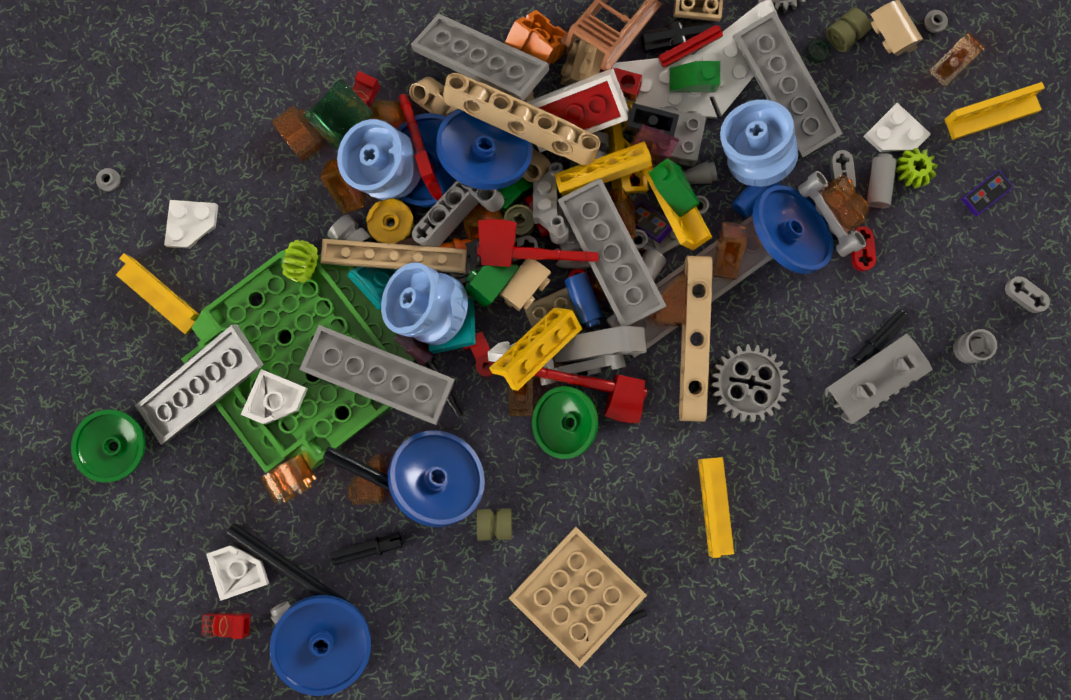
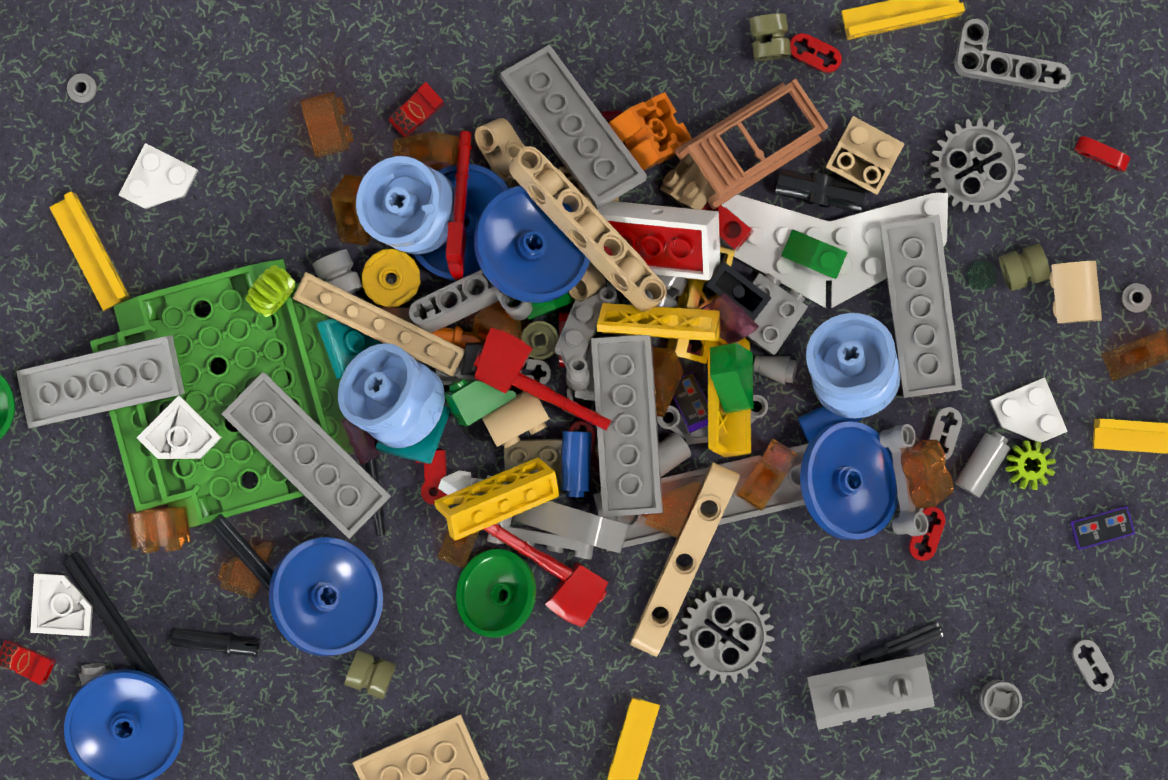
camera: 15 degrees right, 5 degrees up
(338, 113) = (381, 127): clear green bracket -> none
(690, 46) = (827, 213): red axle -> none

